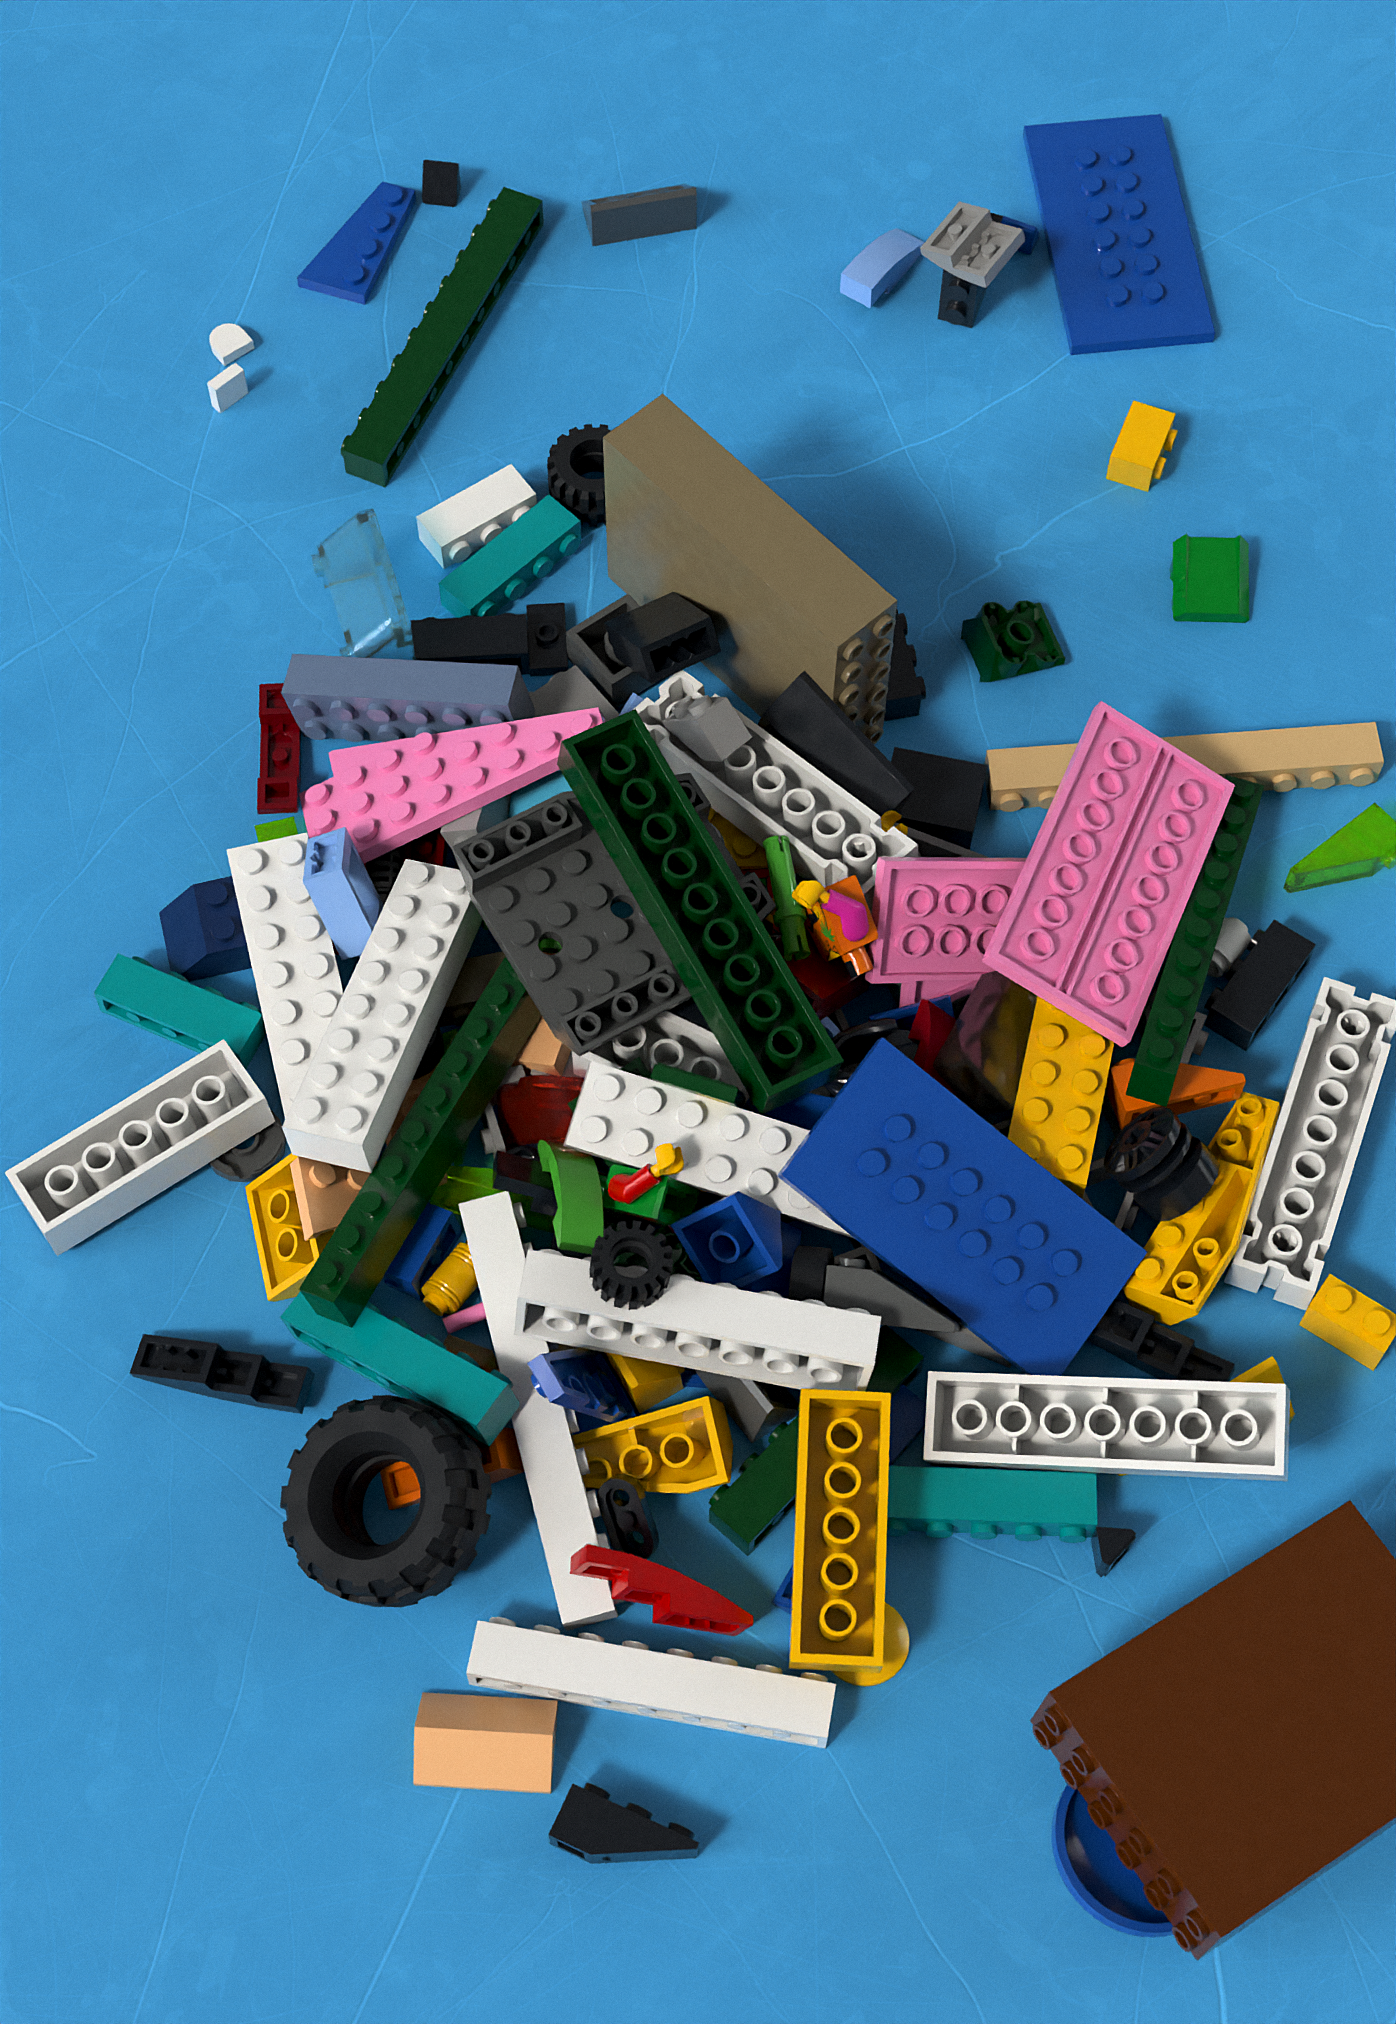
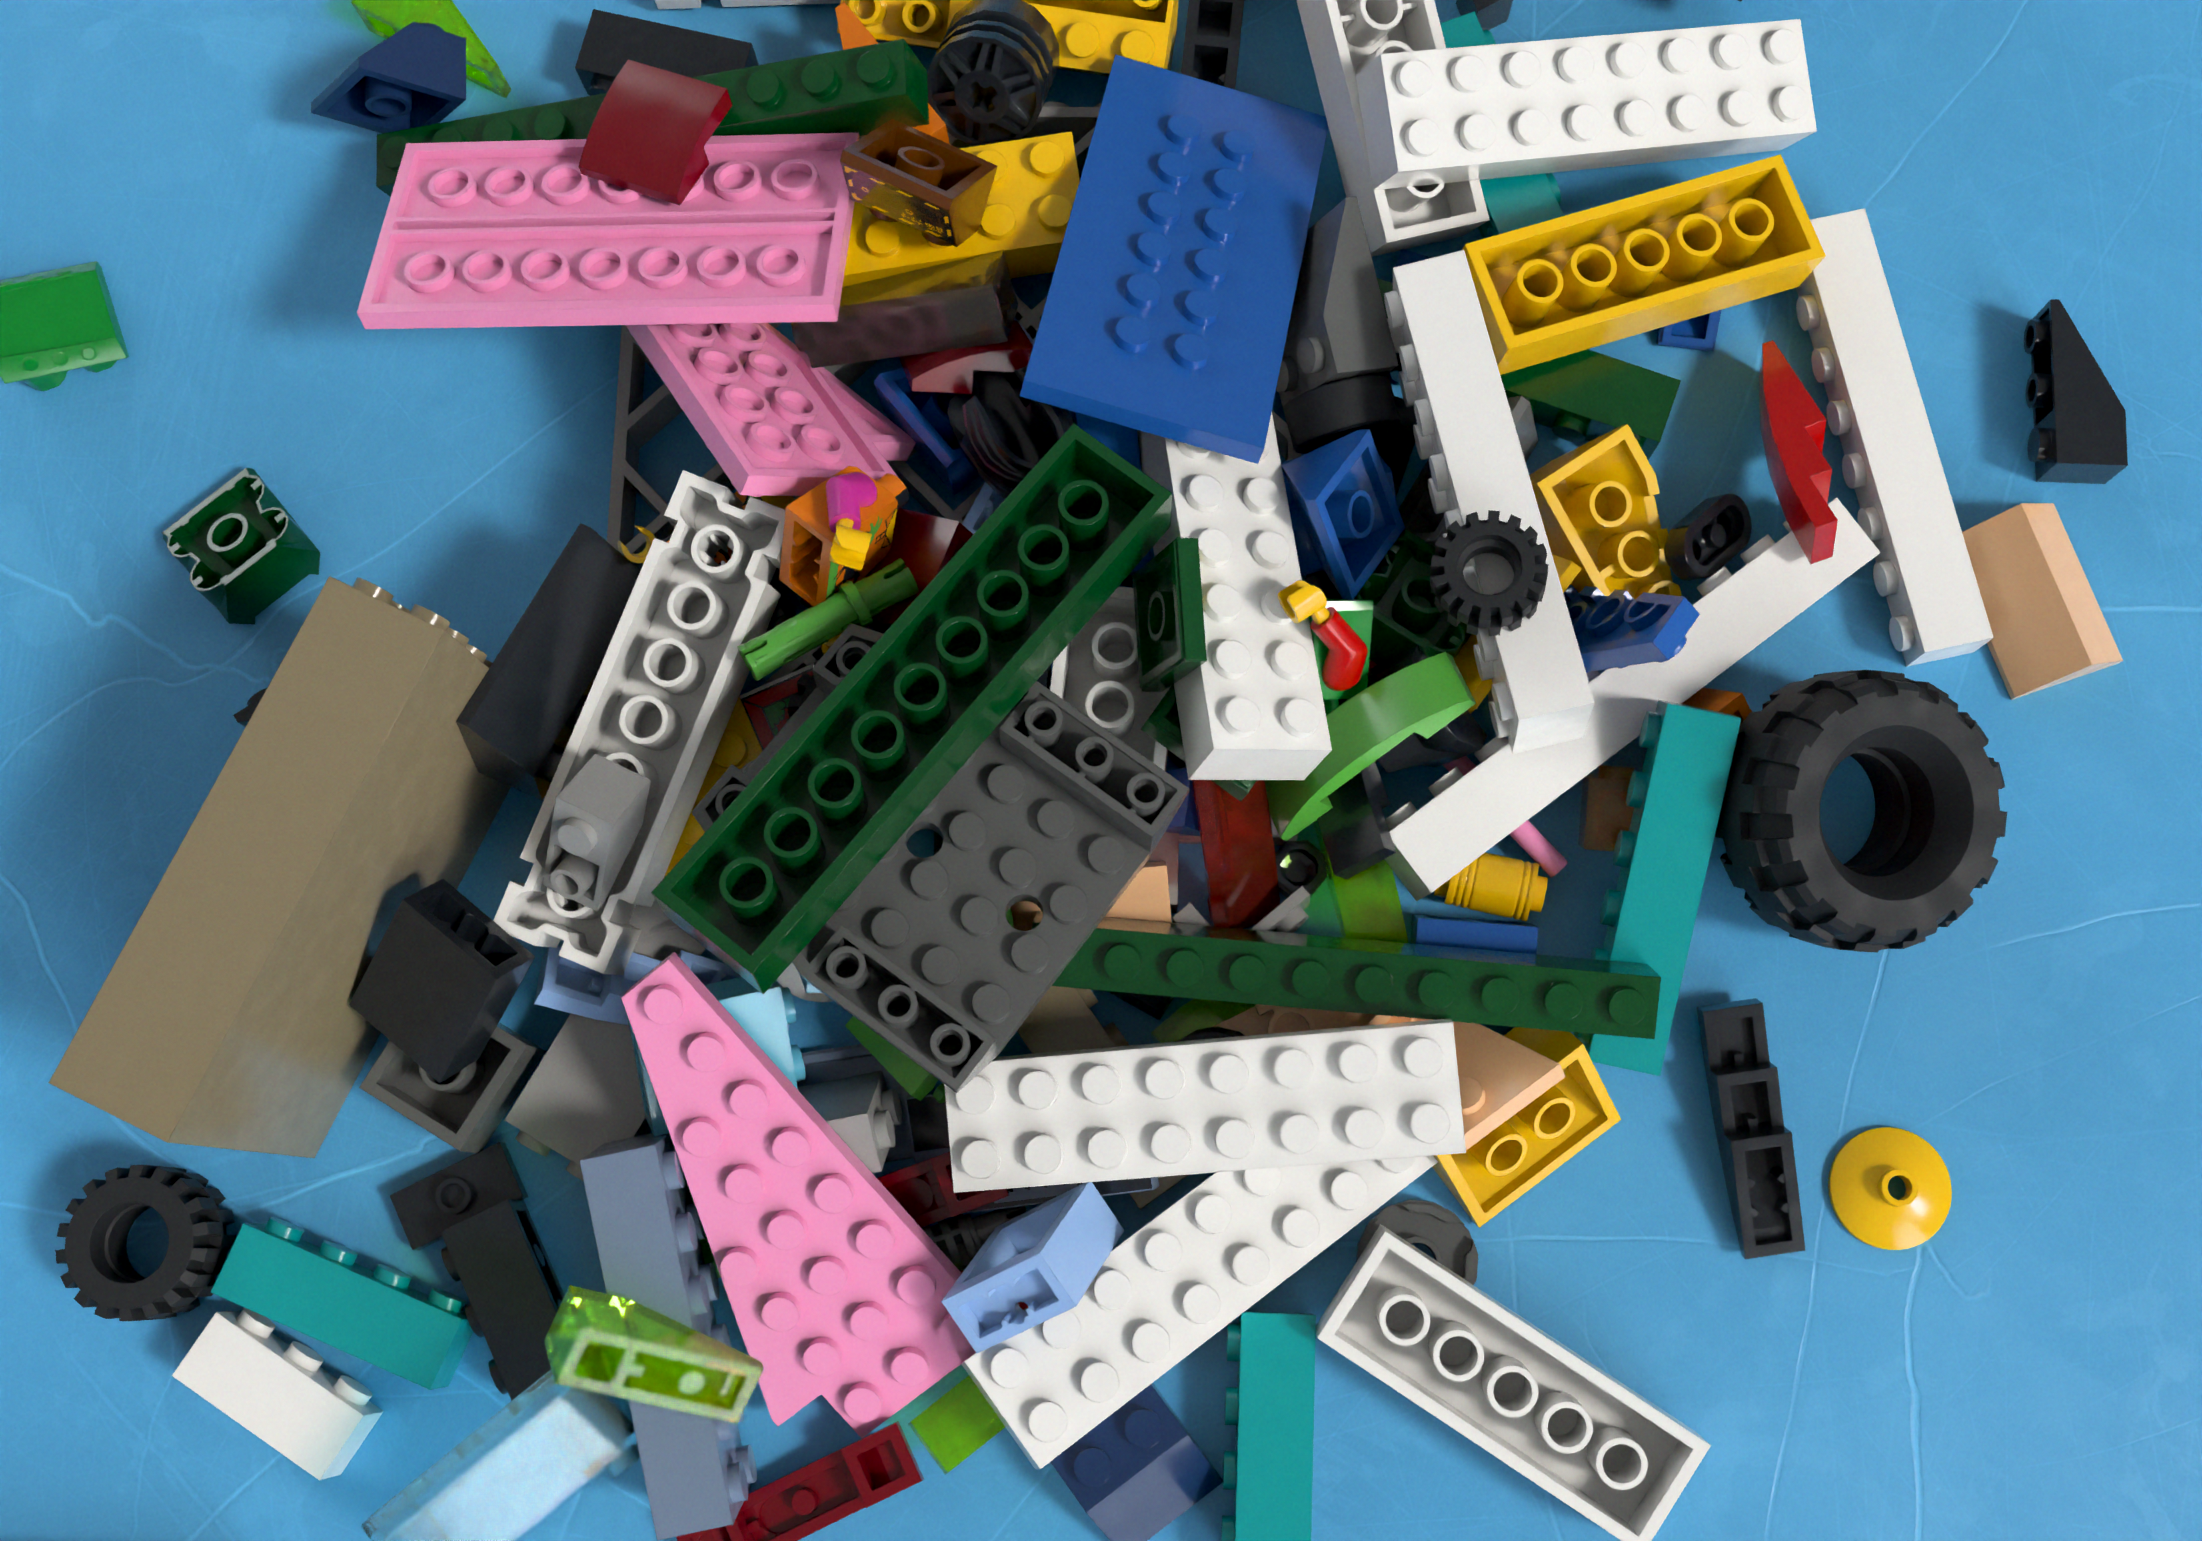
camera: 105 degrees left, 15 degrees up
(151, 1466) = (1861, 1193): none -> yellow dish
(391, 662) = (647, 1358): none -> clear neon green slope
(944, 794) = (520, 538): black brick -> none
(979, 1554) = (1584, 103): none -> white brick
(1066, 1048) = (919, 182): none -> reddish brown slope
(1173, 914) = (654, 132): none -> dark red slope
(1271, 757) = (348, 215): tan brick -> none
(1300, 809) = (400, 82): none -> dark blue slope

